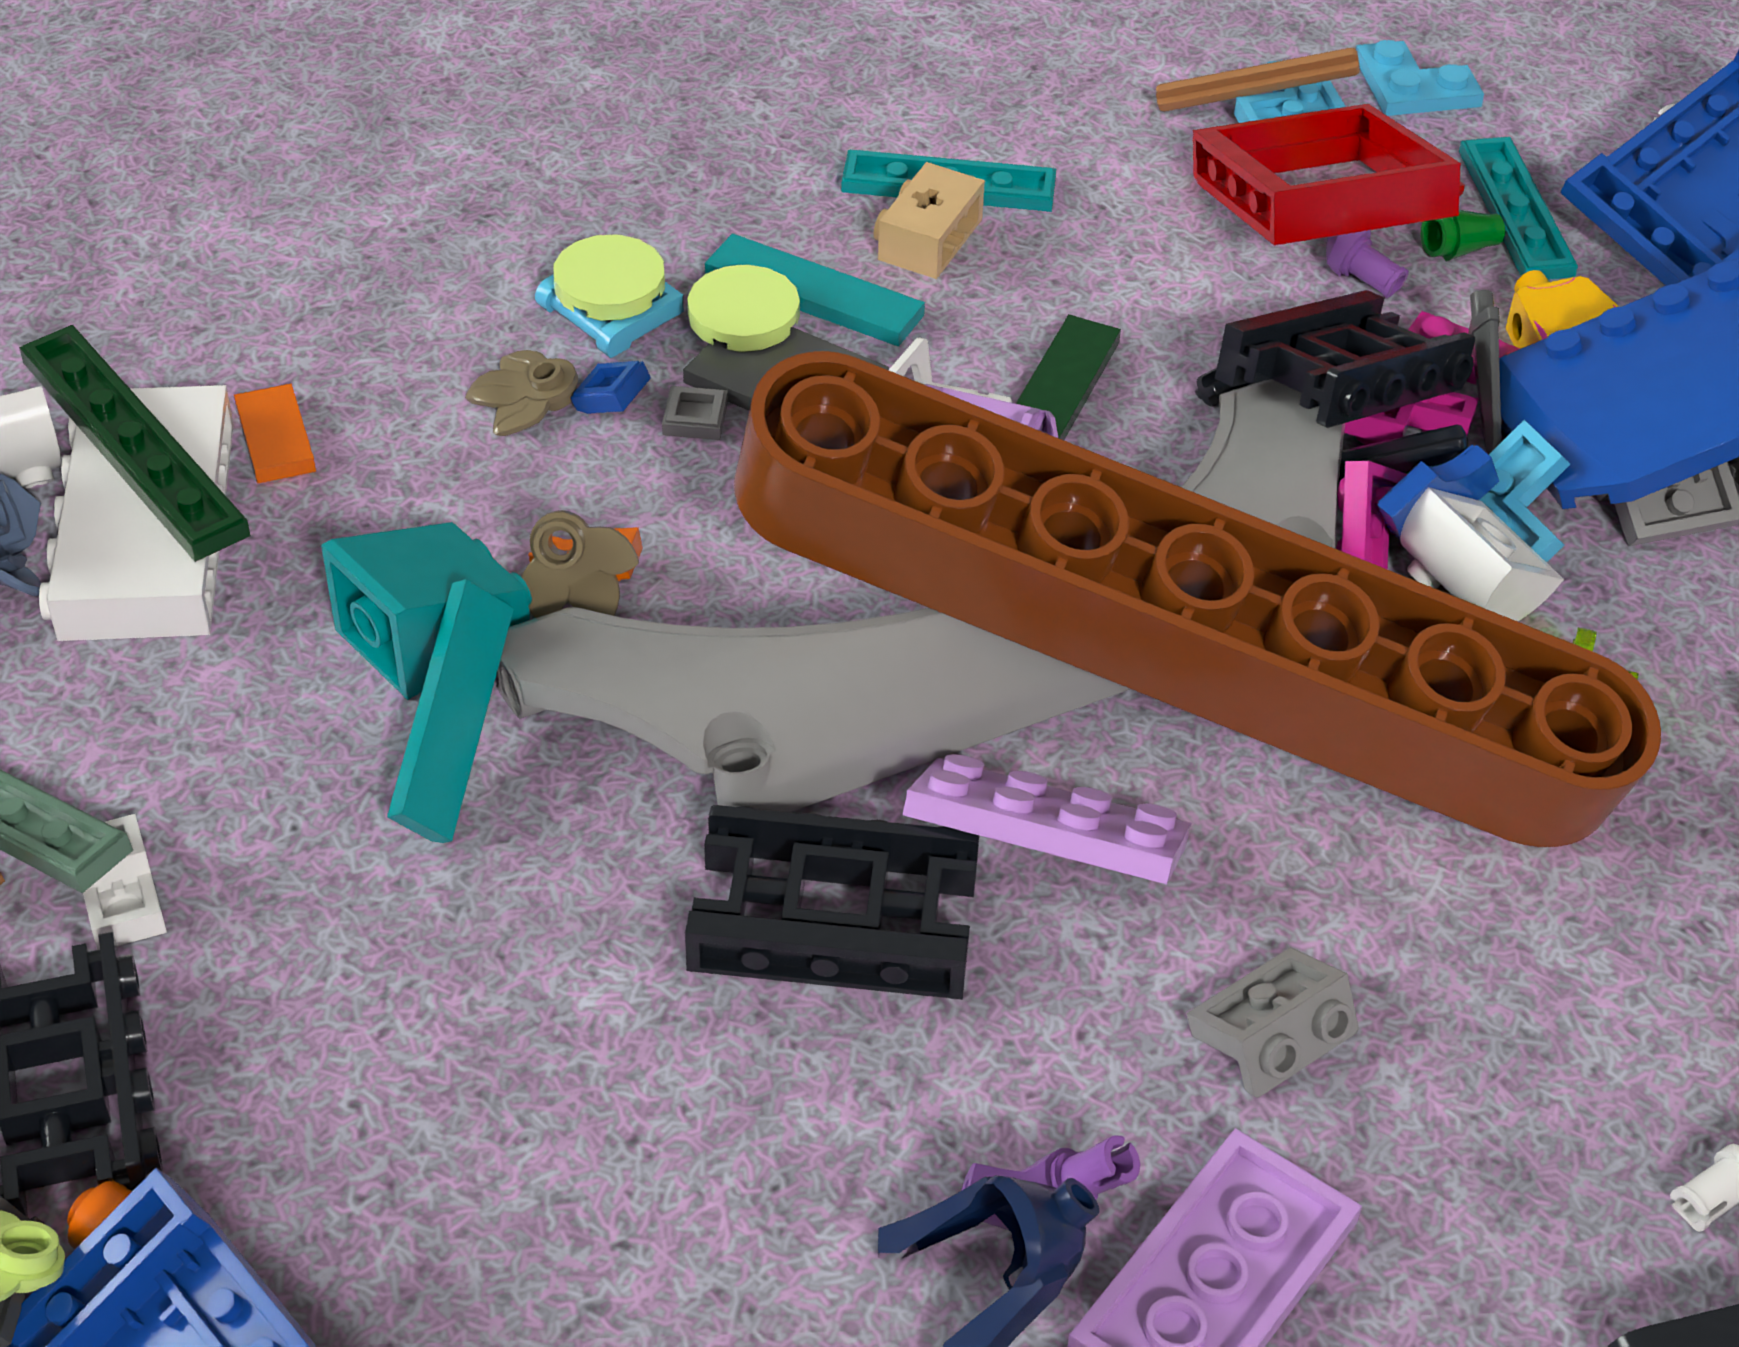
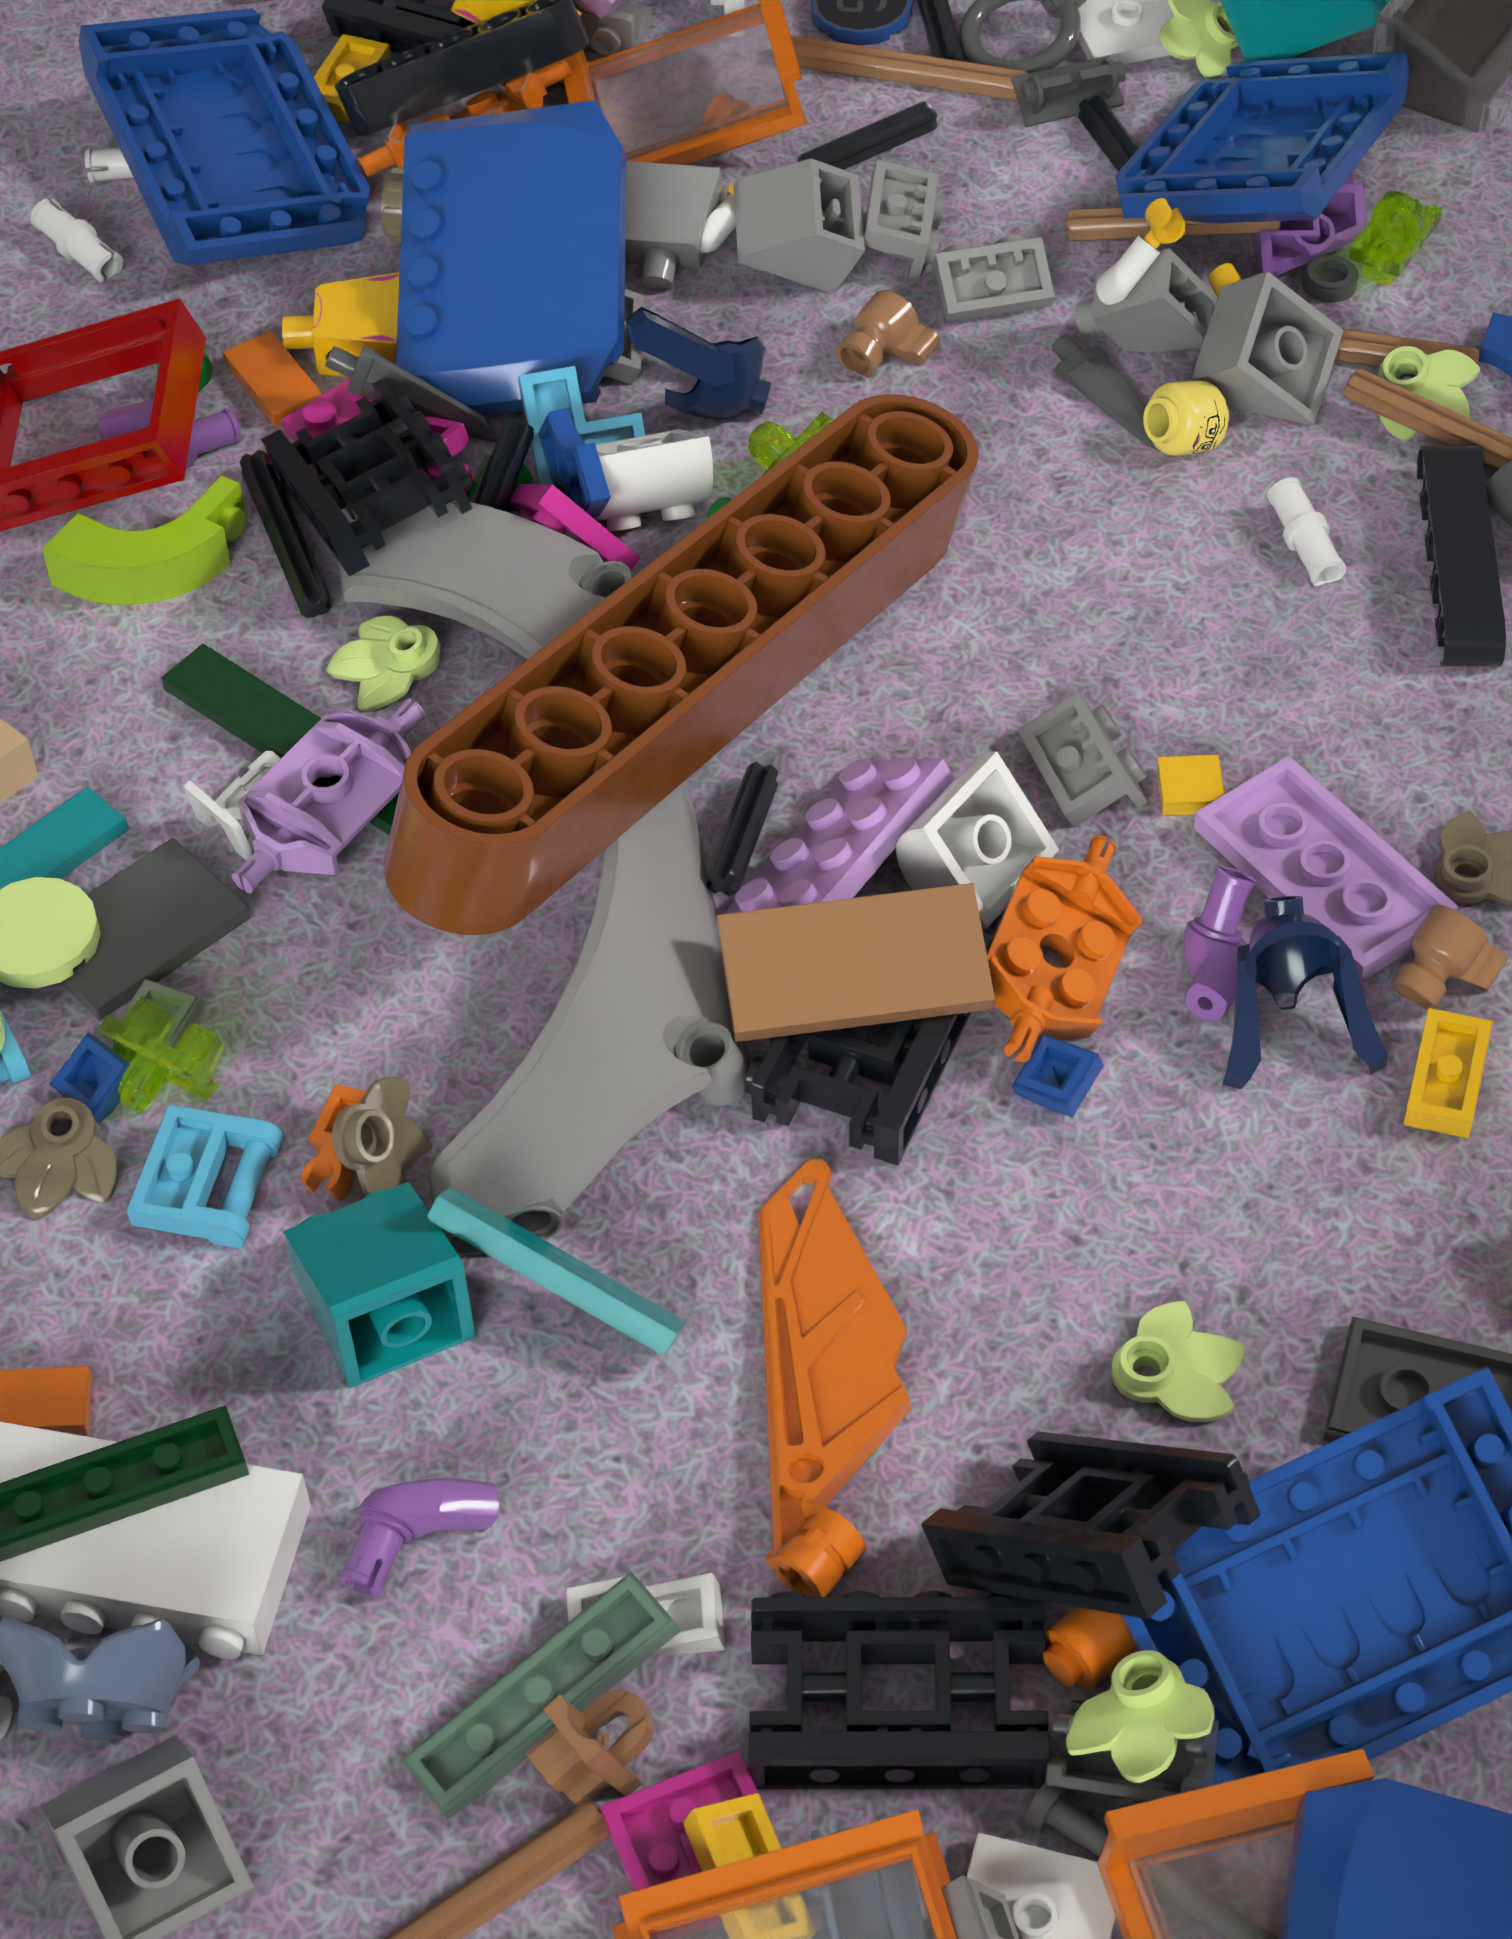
camera: 70 degrees left, 5 degrees up
(186, 1157) = (1091, 1522): none -> black fence
(192, 684) = (408, 1513): none -> medium lavender arm
(406, 959) = (826, 1378): none -> orange wing
(487, 1266) = (1187, 1364): none -> yellowish green plate
(525, 464) = (184, 1168): none -> medium azure plate
(642, 432) = (154, 1063): none -> clear neon green hips
(830, 1075) = (1058, 1075): none -> blue tile
(870, 843) = (855, 962): none -> medium nougat tile
(1042, 1011) = (1081, 918): none -> orange plate
(1054, 745) = (742, 829): none -> black axle
(1097, 930) = (977, 835): none -> white brick
(1164, 448) = (386, 660): none -> yellowish green plate
(1204, 278) = (151, 563): none -> lime arch
(1294, 1126) = (1188, 783): none -> yellow tile
(1483, 274) = (270, 376): none -> orange tile
(1511, 192) = (216, 312): teal tile -> none
(1566, 132) = (76, 239): none -> white pin
(1642, 589) = (725, 369): none -> dark blue piece

